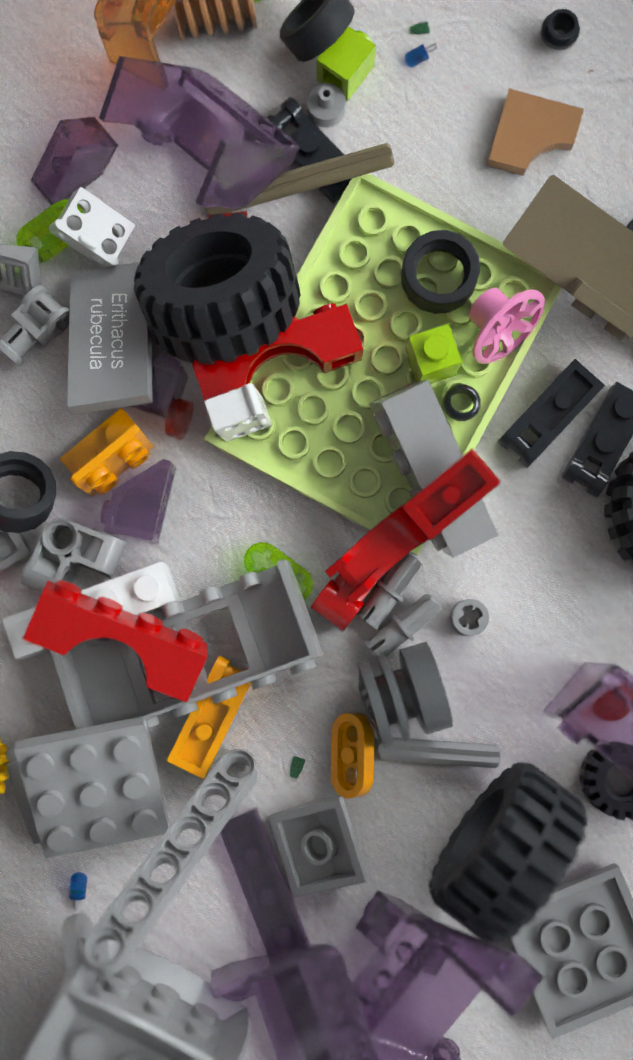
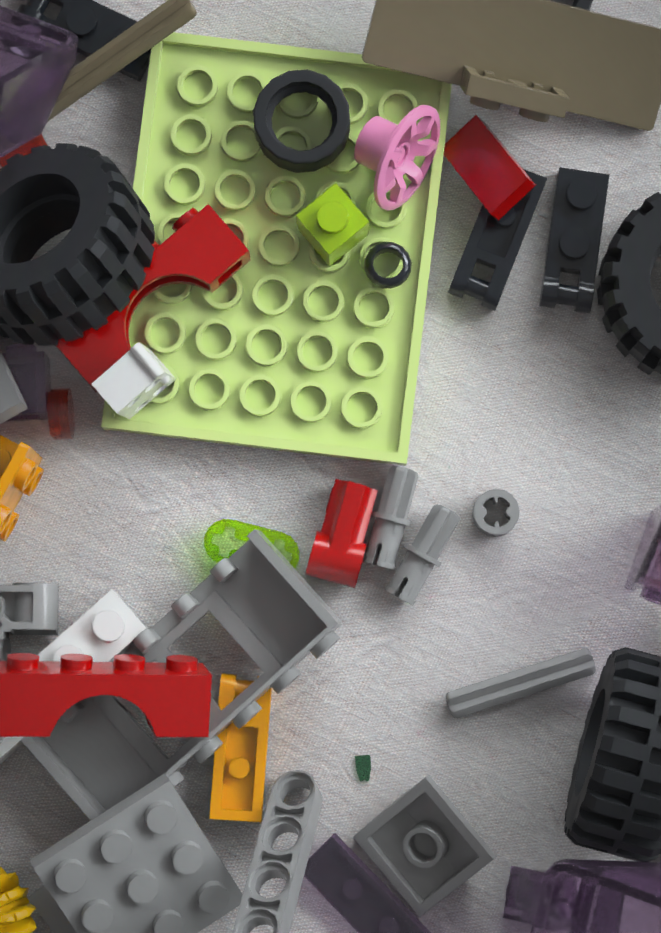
camera: 25 degrees left, 0 degrees up
(140, 504) = (57, 534): clear purple slope -> none
(352, 754) = (422, 725): light orange plate -> none
(405, 694) = (453, 629): dark grey wheel -> none
(415, 522) = (386, 430): red piece -> none
(422, 451) = (384, 355): light grey wedge -> none
(564, 360) = (487, 167): none -> red tile

